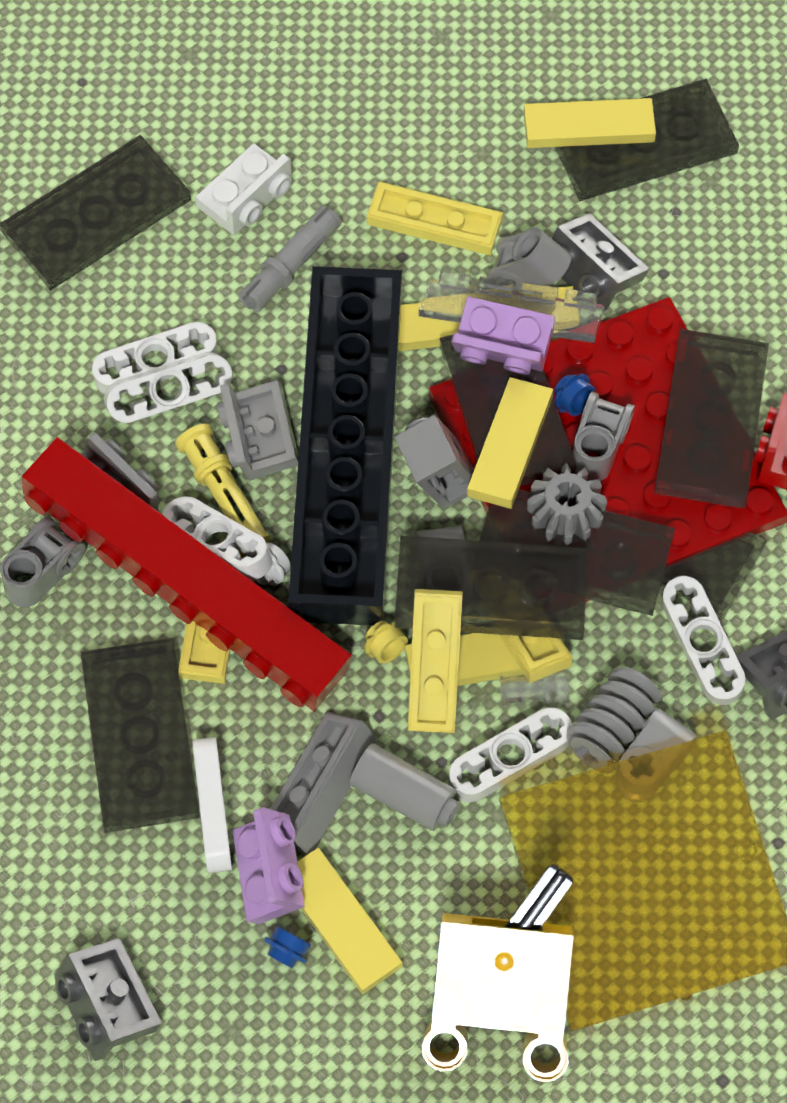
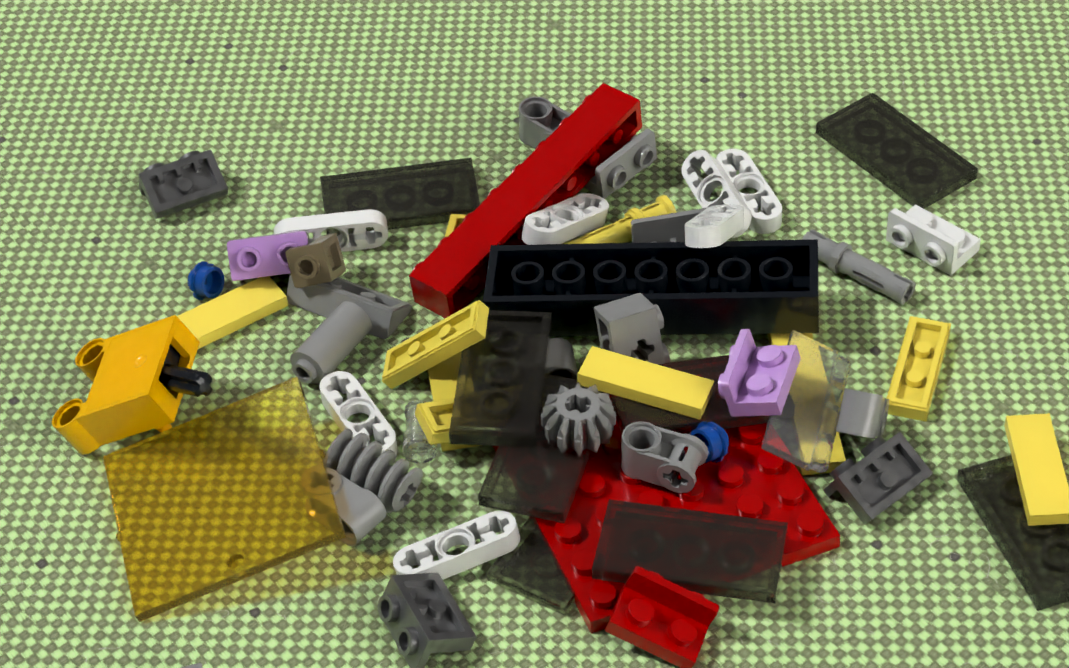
camera: 95 degrees right, 20 degrees down
(289, 377) = (714, 226): none -> white beam
(295, 799) = (316, 261): none -> dark tan bracket

